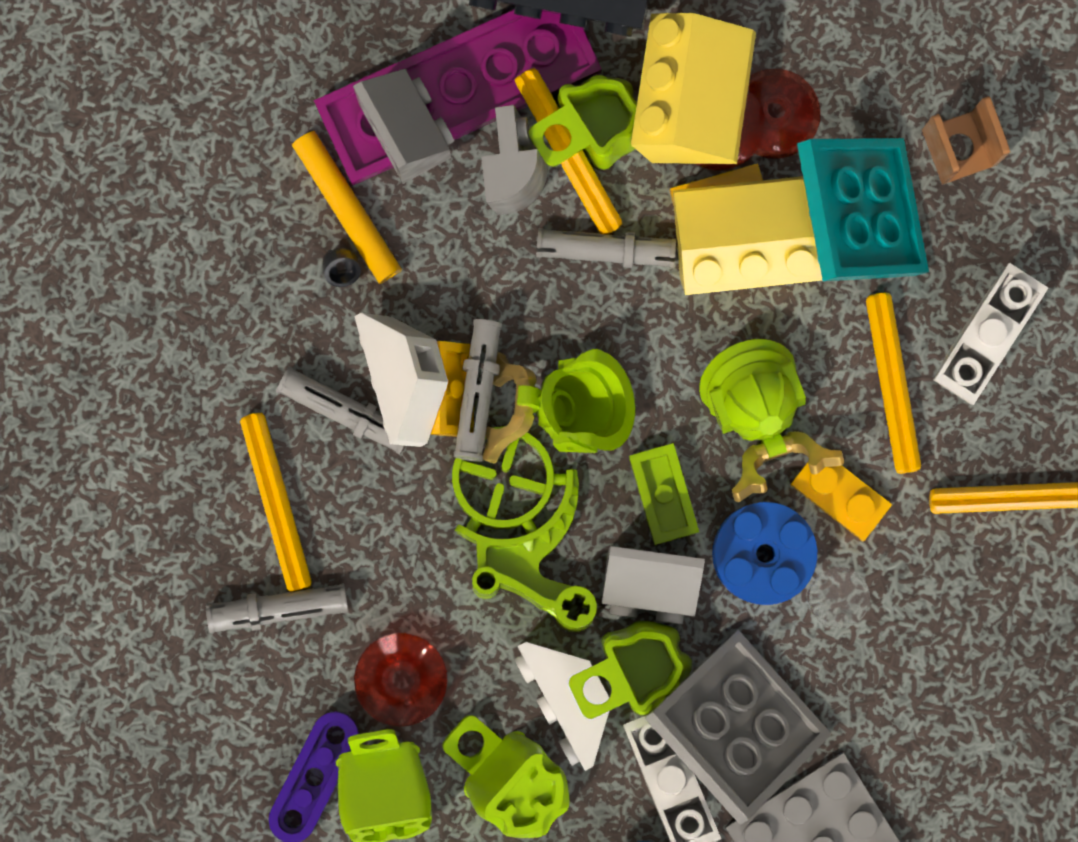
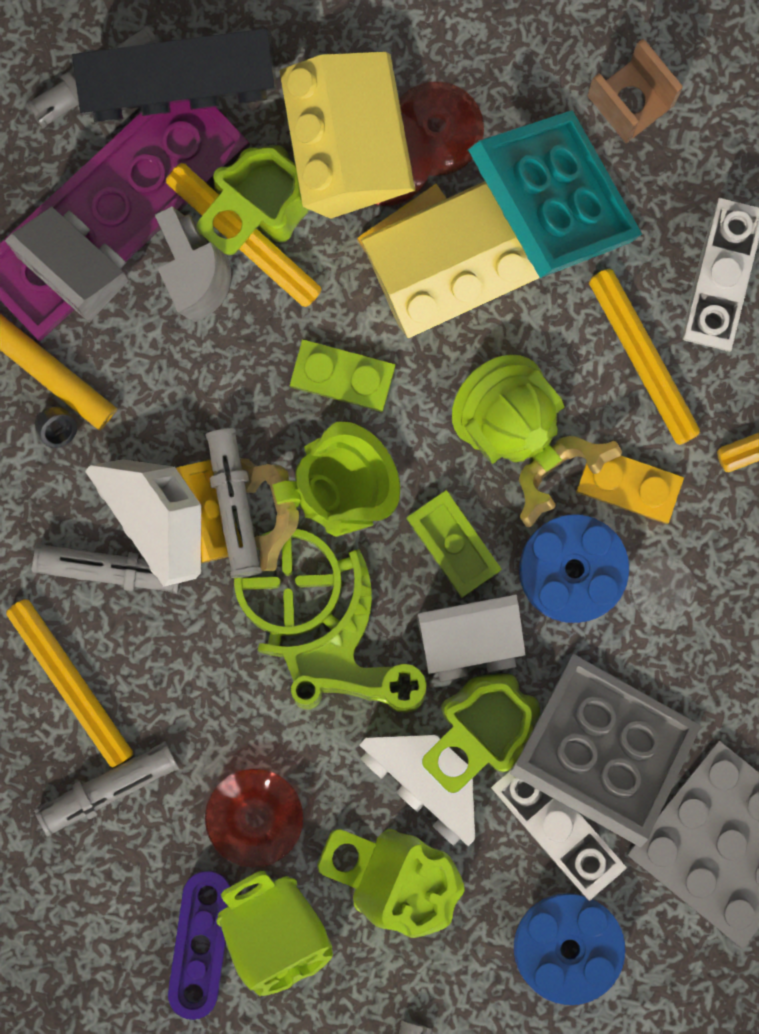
camera: 15 degrees left, 0 degrees up
(606, 248) = (314, 318): light grey pin -> none
(614, 308) = (342, 375): none -> lime plate

